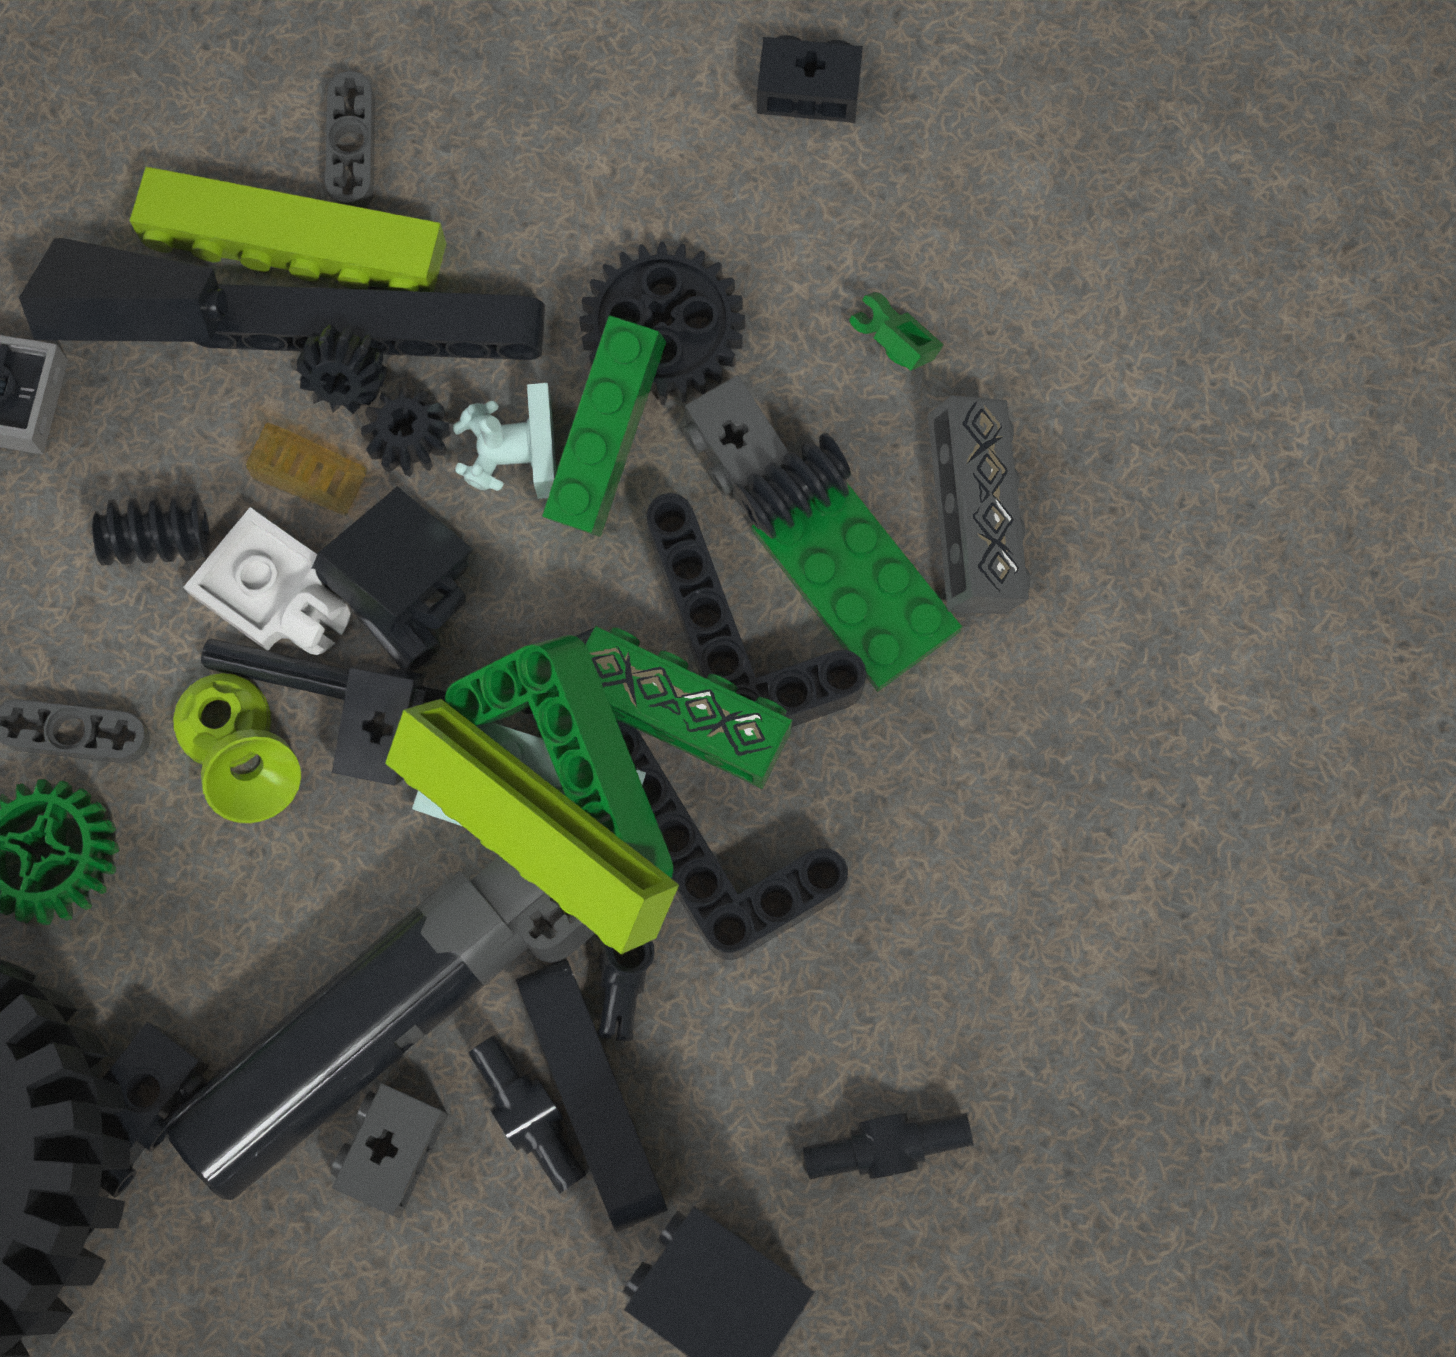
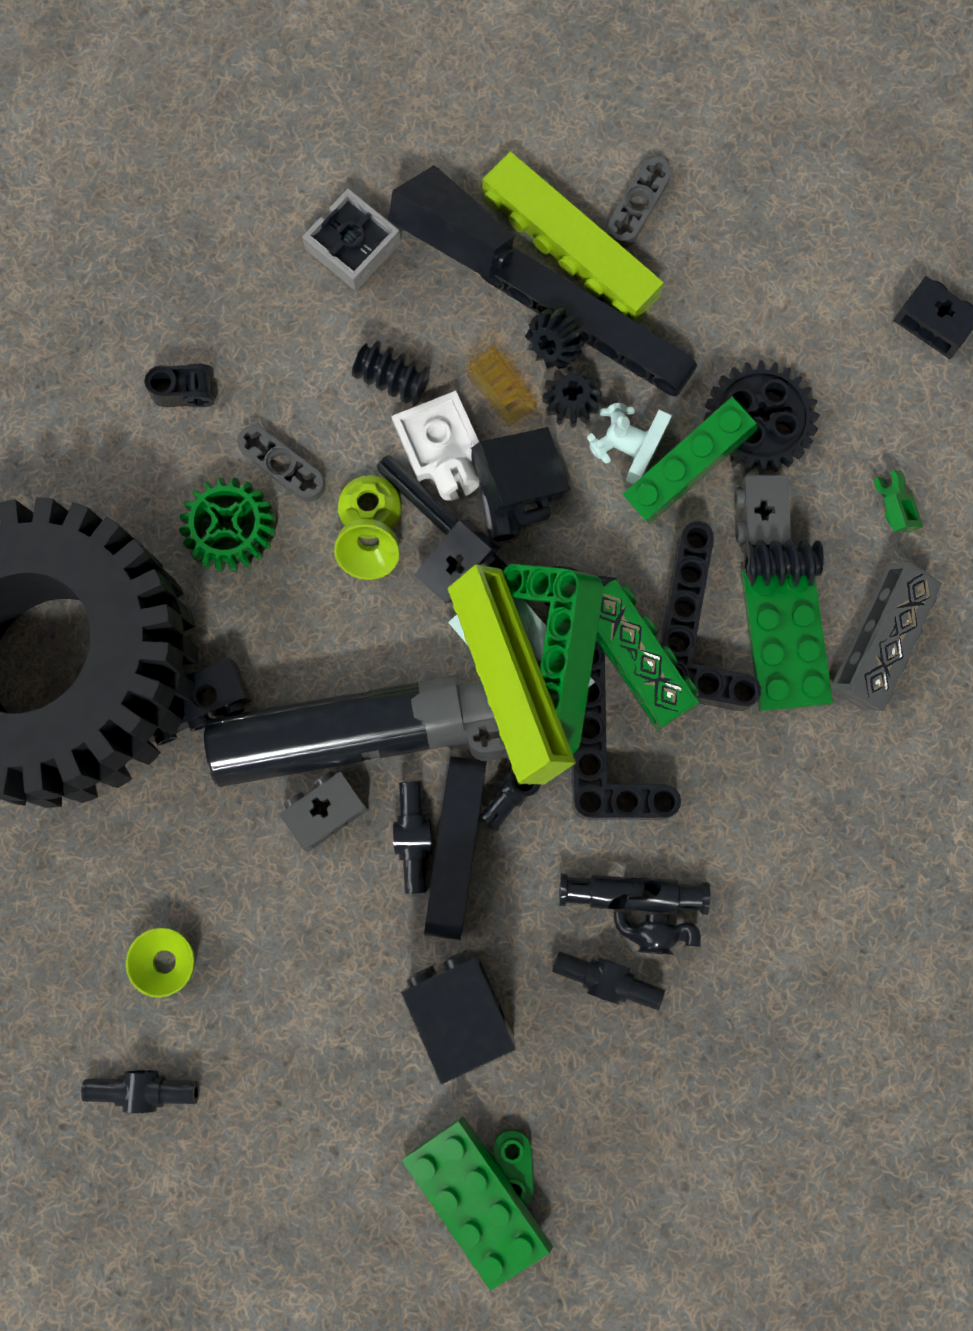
camera: 30 degrees right, 5 degrees up
(820, 1031) = (627, 893): none -> black piece
(914, 1049) = (656, 934): none -> black piece

